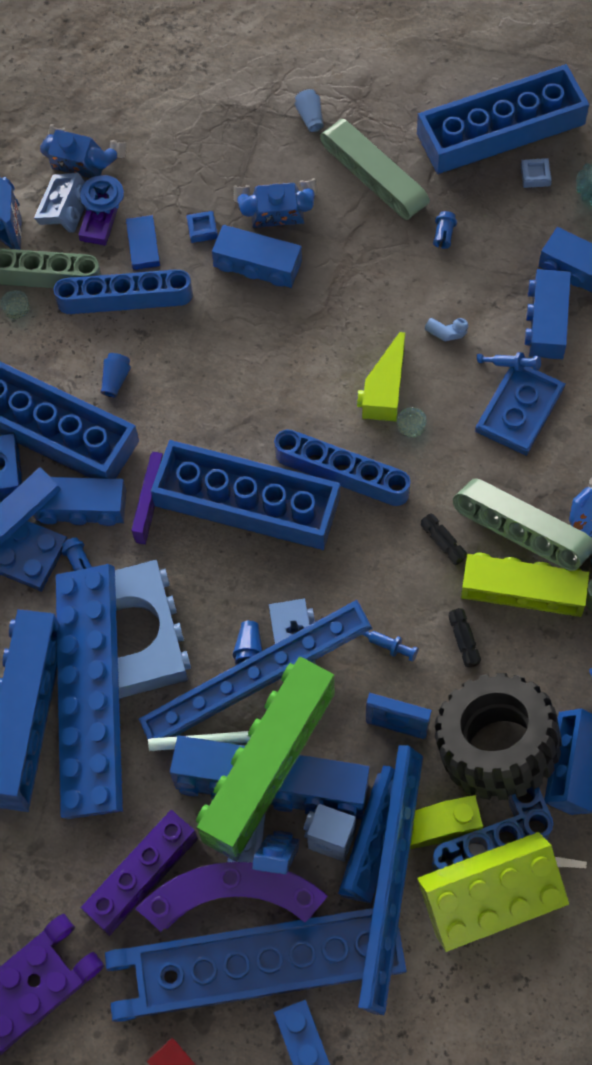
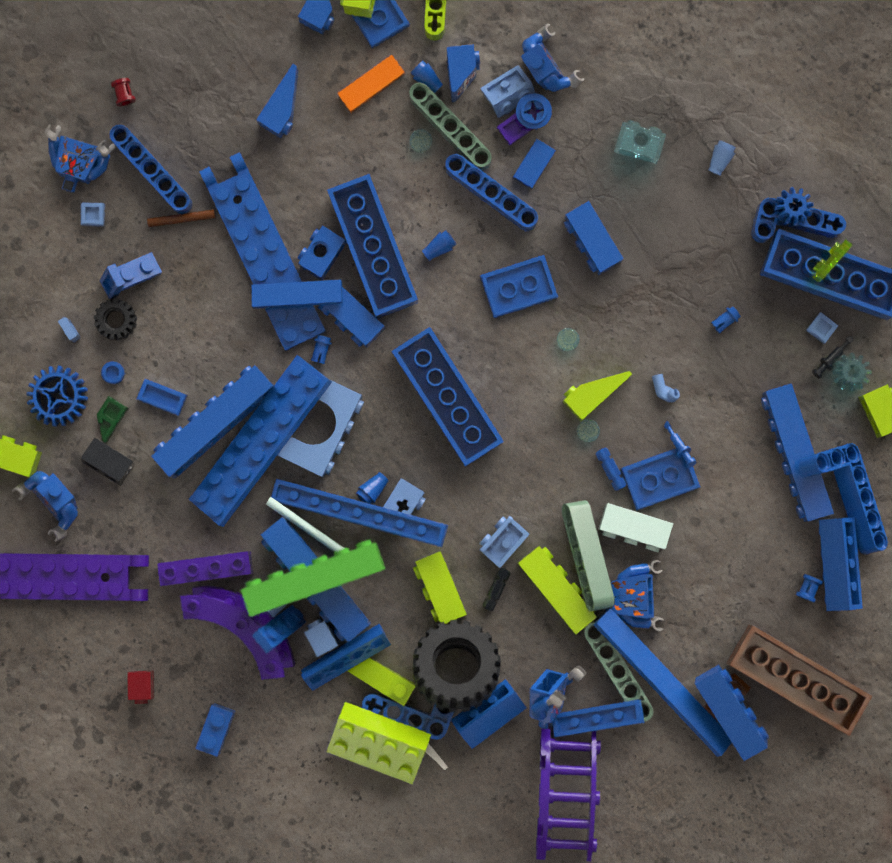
camera: 40 degrees right, 20 degrees up
(145, 506) = (387, 350): dark purple tile -> none
(202, 226) = (580, 184): blue tile -> none
(224, 352) = (519, 286): none -> blue tile
(225, 151) = (627, 146): none -> clear light blue brick
(247, 963) = (229, 670): blue hinge -> none
(276, 203) = (635, 214): blue torso -> none
(315, 360) = (568, 339): none -> clear light blue tile
(334, 456) = (519, 414): blue beam -> none
(374, 169) = (722, 237): sand green beam -> none
(391, 881) = (332, 690): blue tile -> none
(394, 645) = (452, 559): blue piece -> none
(397, 716) = (414, 605): blue tile -> none
(401, 112) = (770, 222): none -> blue beam
(405, 679) = (439, 588): none -> lime brick
(413, 86) = (799, 200): none -> blue gear
(428, 584) = (504, 541): none -> medium blue bracket
(443, 539) = (538, 521): black axle -> none
(466, 436) = (611, 469): none -> blue axle
(489, 87) = (837, 252): none -> clear neon green plate
(542, 465) = (635, 527): none -> light aqua brick
(548, 314) = (733, 433): blue brick -> none
(570, 193) = (826, 363): none -> black piece

